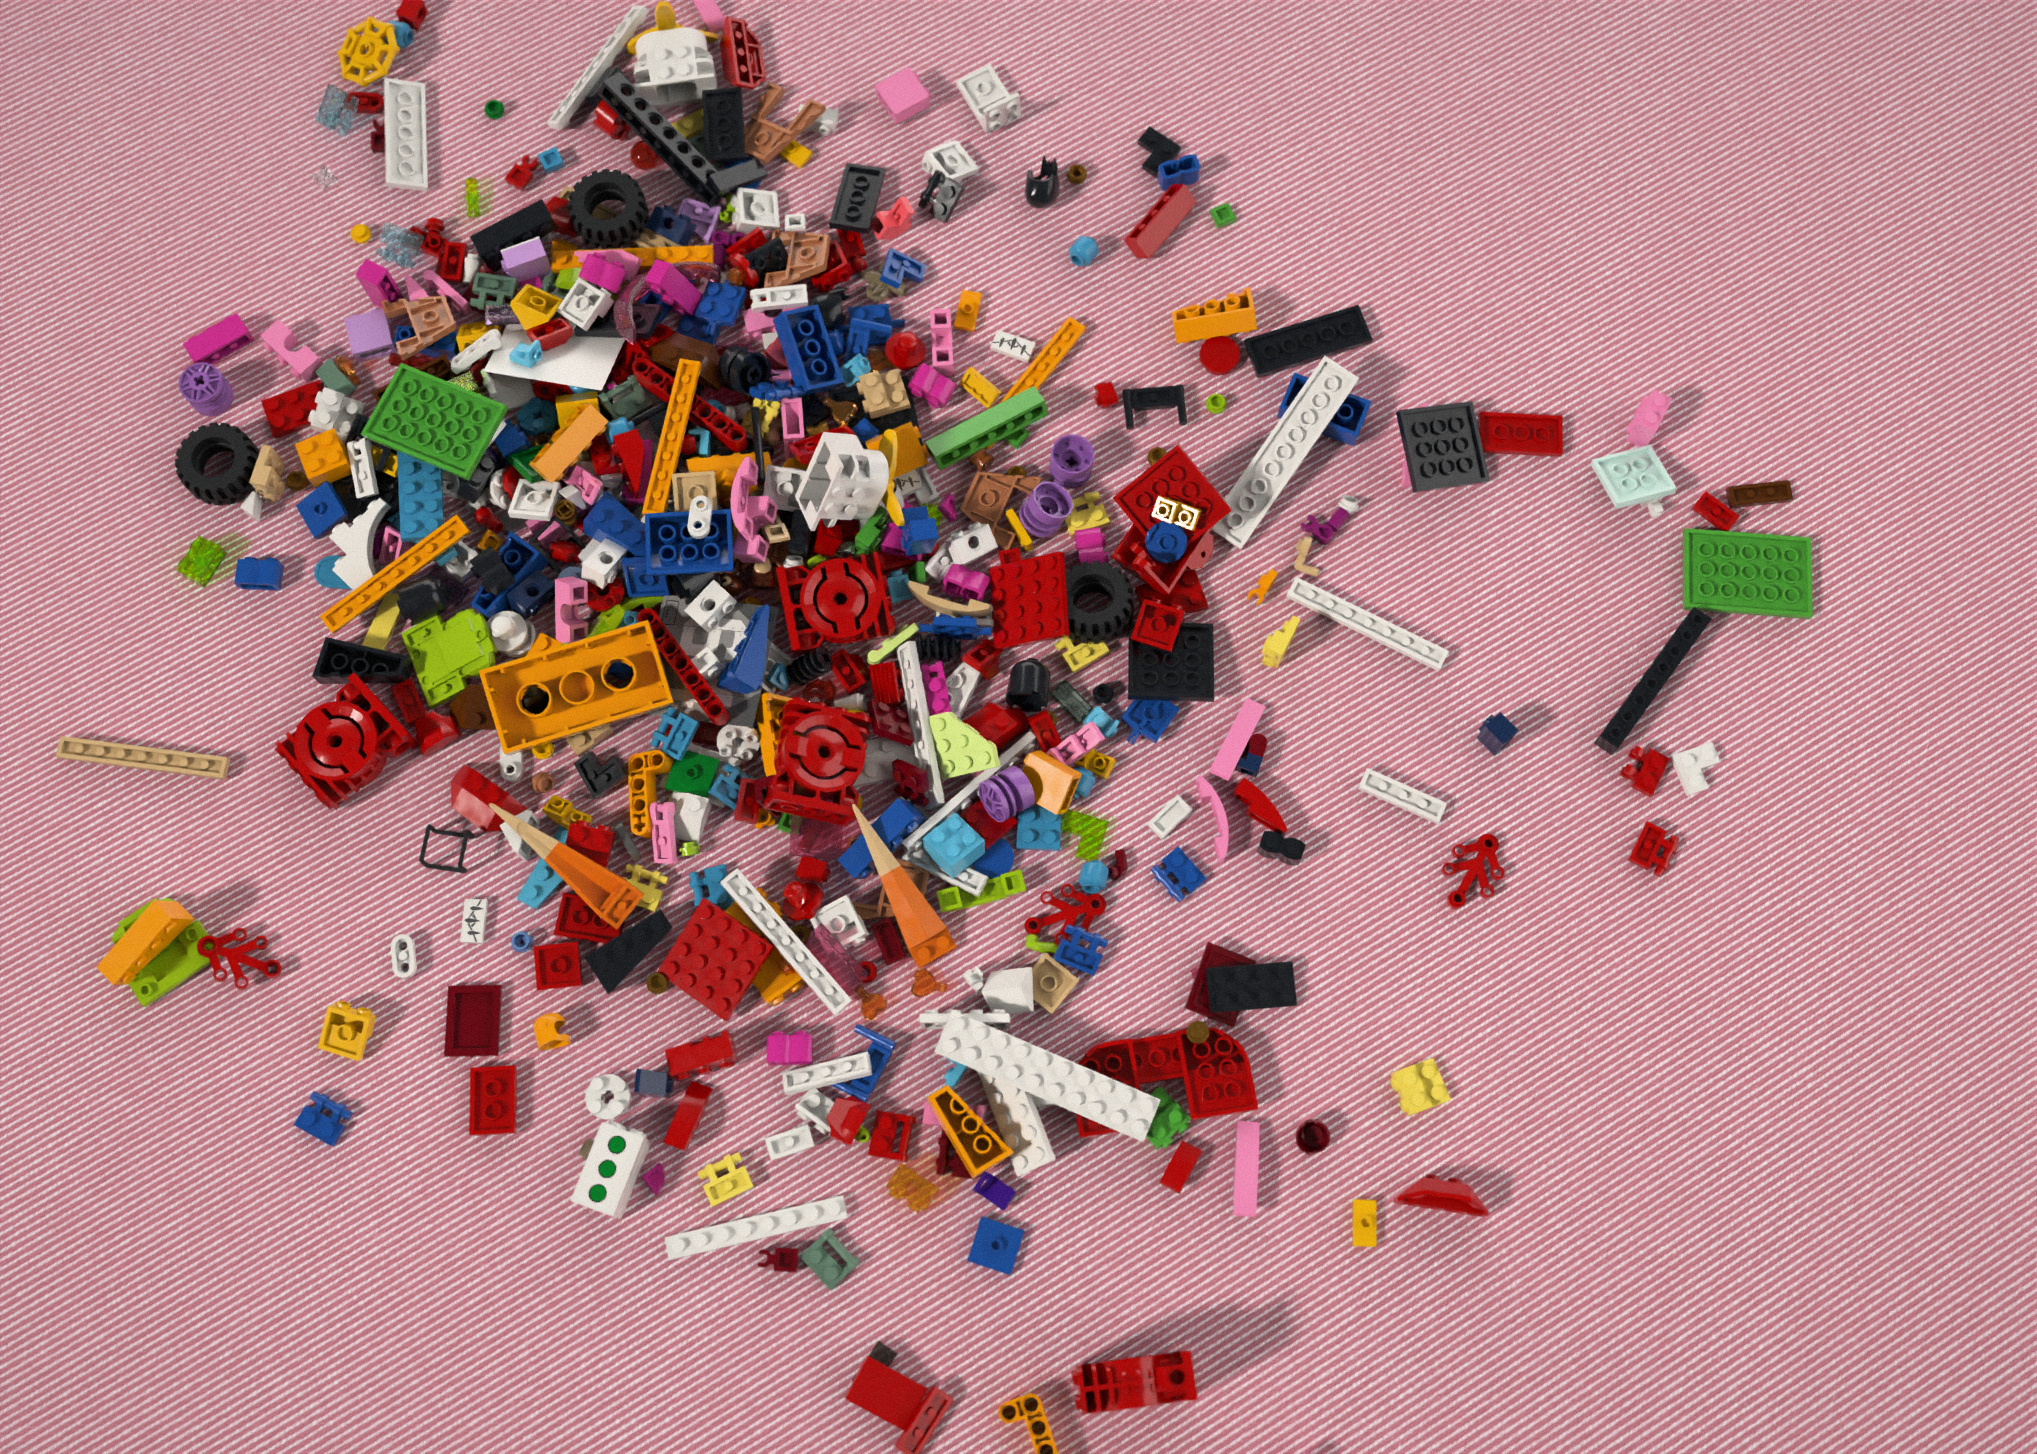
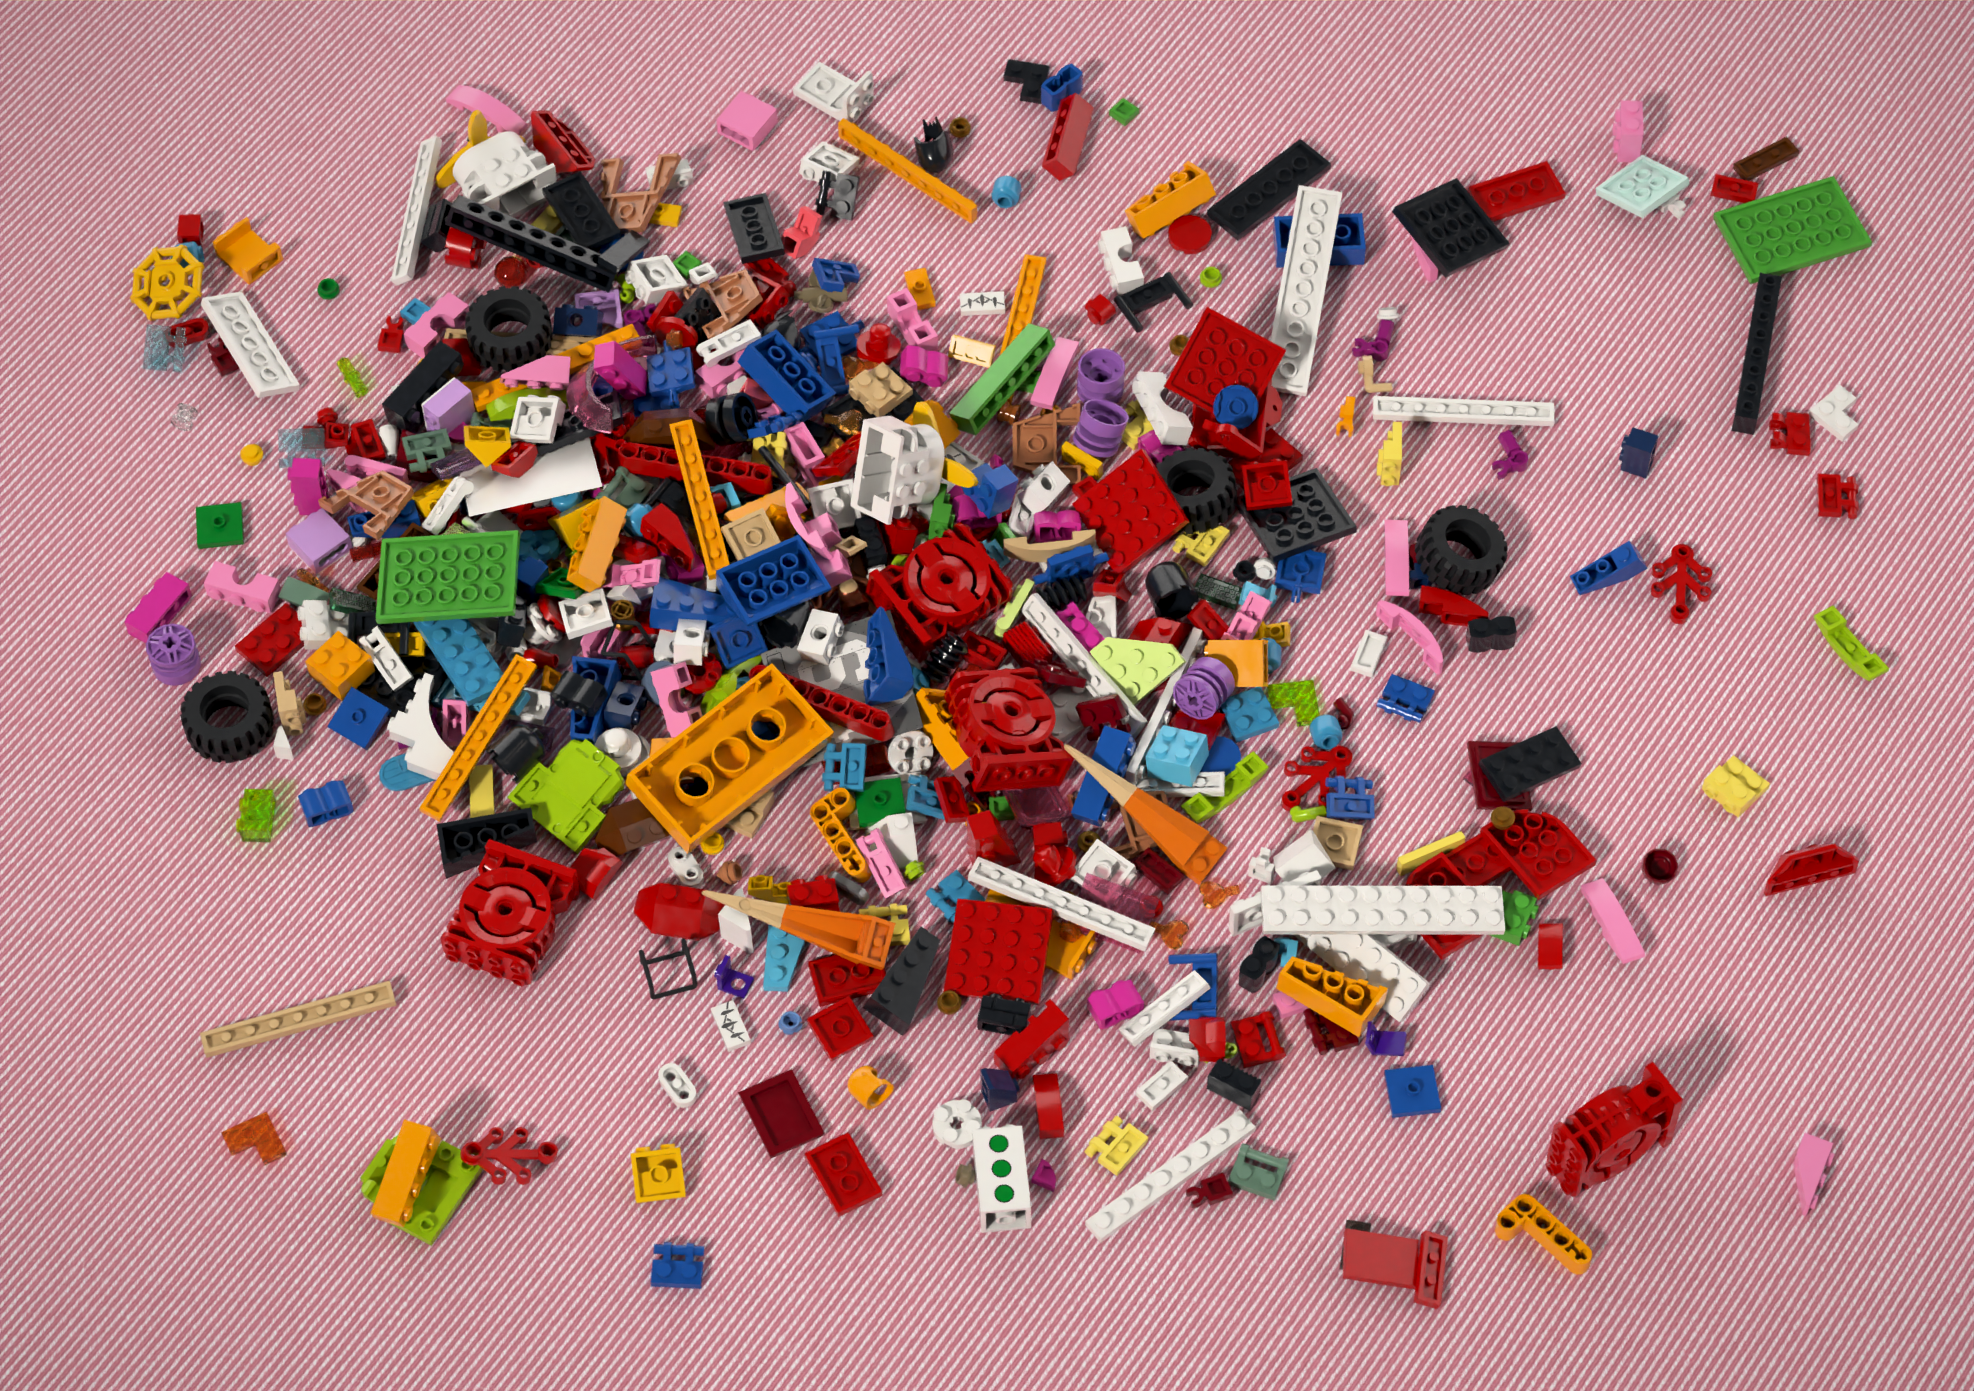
camera: 25 degrees left, 15 degrees down
(64, 844) = (258, 1133): none -> clear orange plate
(305, 287) = (219, 525): none -> green plate
(361, 401) = (350, 602): none -> tile
(409, 701) = (549, 850): red plate -> none
(447, 48) = (246, 251): none -> light orange panel
(490, 874) = (725, 976): none -> dark purple bracket
(526, 354) = (504, 486): medium azure bracket -> none
(546, 181) = (447, 312): none -> bright pink arch
(600, 778) = (786, 845): black plate -> none
(603, 273) = (542, 381): dark pink brick -> none
(694, 1017) = (1003, 1015): none -> black brick
(701, 516) = (773, 549): white plate -> none
(707, 663) = (847, 686): white bracket -> none
(756, 858) = (990, 840): none -> red wedge
(789, 206) = (685, 263): none -> bright green tile
(846, 880) = (1088, 835): none -> pearl gold plate
(848, 1171) = (1234, 1084): none -> black brick
(855, 367) = (839, 379): medium azure bracket -> none
(920, 1072) = (1258, 964): none -> black brick
(925, 1190) = (1296, 1064): clear yellow brick -> none
(1009, 190) = (907, 170): none -> light orange plate
(1037, 438) = (1054, 373): none -> bright pink slope
(1104, 534) = (1169, 425): none -> white arch
(1120, 699) = (1264, 568): none -> white plate
(1133, 1031) = (1411, 860): none -> light yellow tile
(1149, 341) = (1115, 246): none -> white arch
(1176, 512) = (1234, 373): slope -> none
(1316, 751) = (1472, 531): none -> black tyre
(1364, 1223) = (1748, 923): yellow plate -> none
(1391, 677) = (1516, 460): none -> magenta bar
(1402, 796) = (1576, 544): white plate -> none
(1415, 831) = (1610, 569): none -> blue slope
(1589, 999) = (1848, 646): none -> lime slope

